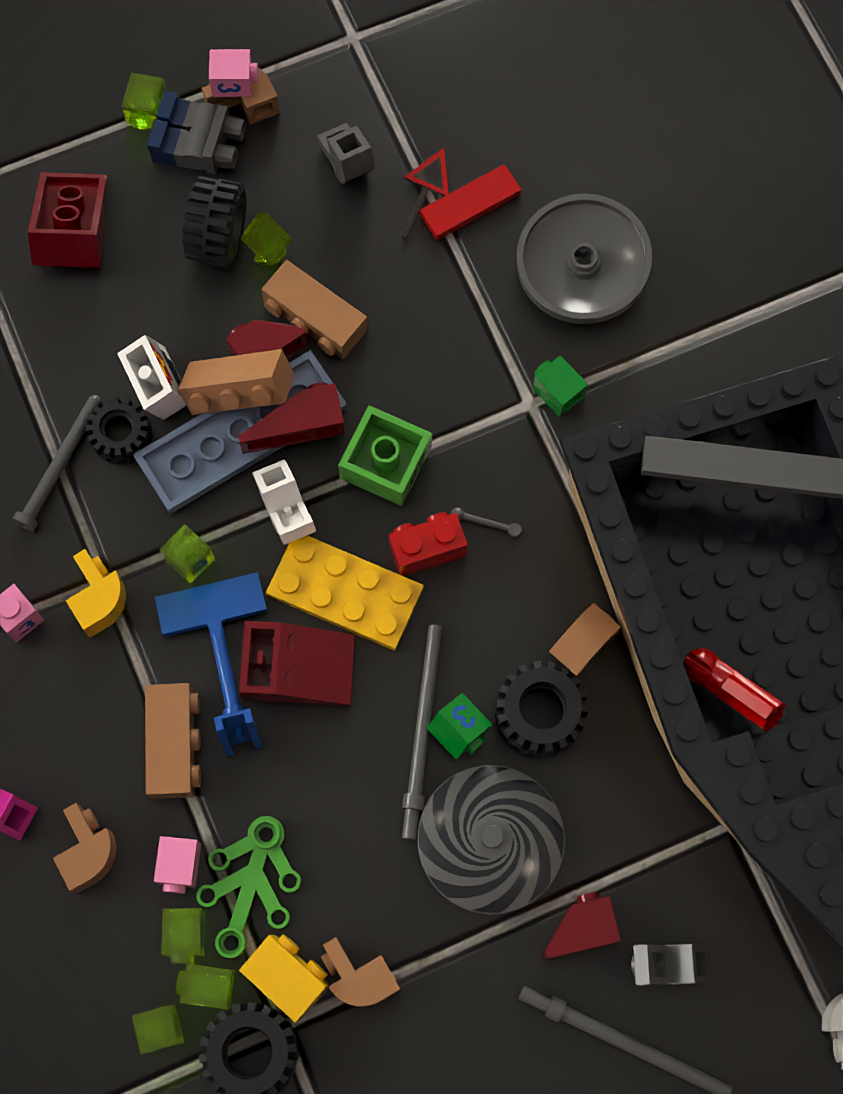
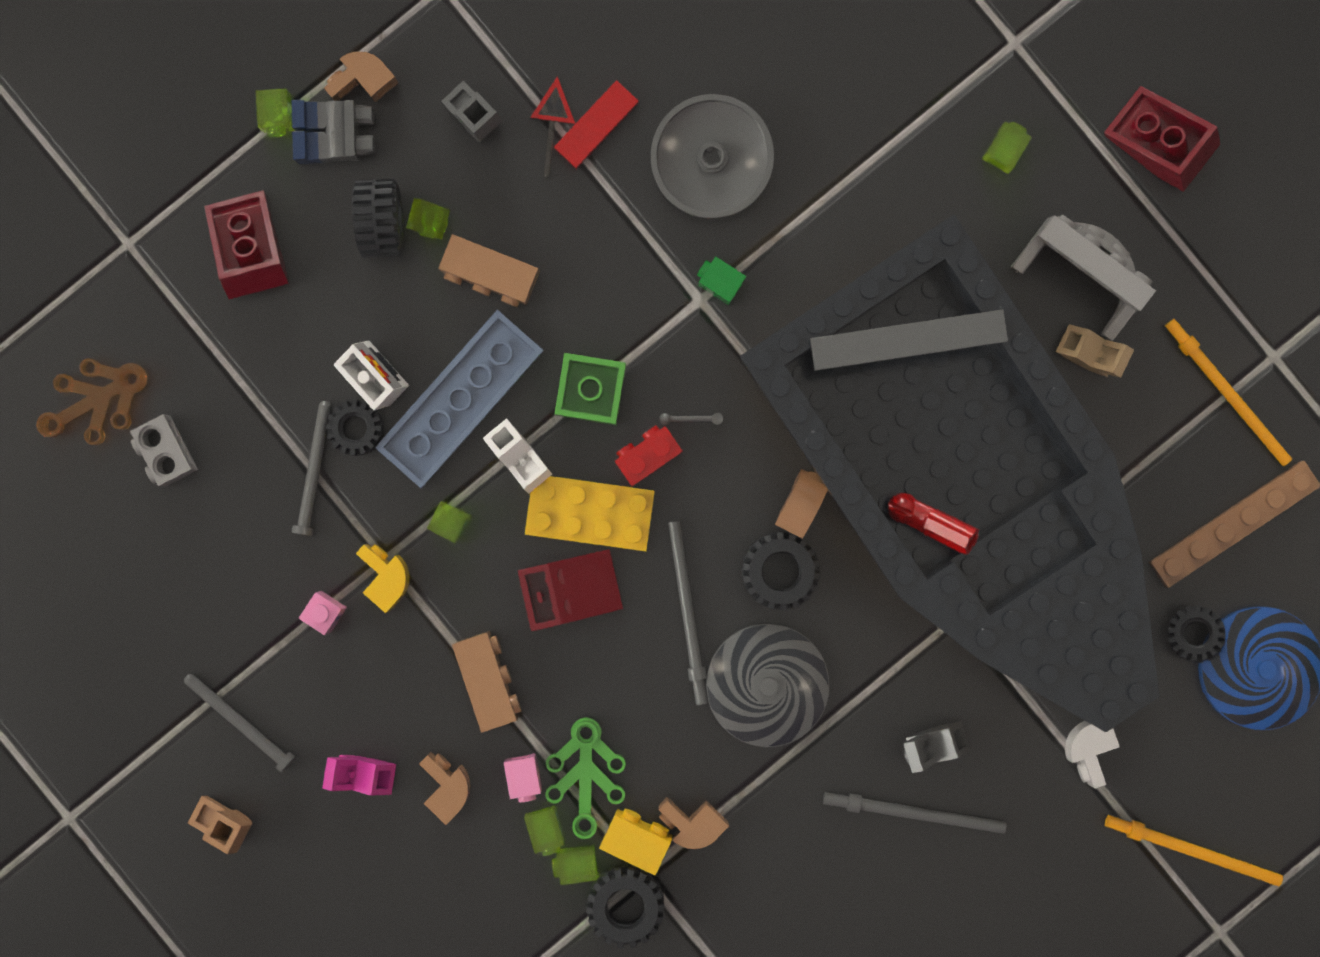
camera: 15 degrees left, 15 degrees up
(158, 1029) = (549, 908): clear neon green brick -> none
(211, 607) = (482, 559): blue piece -> none
(232, 73) = (349, 70): bright pink brick -> none
(237, 382) = (445, 363): medium nougat brick -> none
(266, 336) = (454, 316): dark red slope -> none
(303, 418) = (511, 377): dark red slope -> none
(460, 727) = (718, 603): green brick -> none
(584, 927) = (860, 736): dark red slope -> none

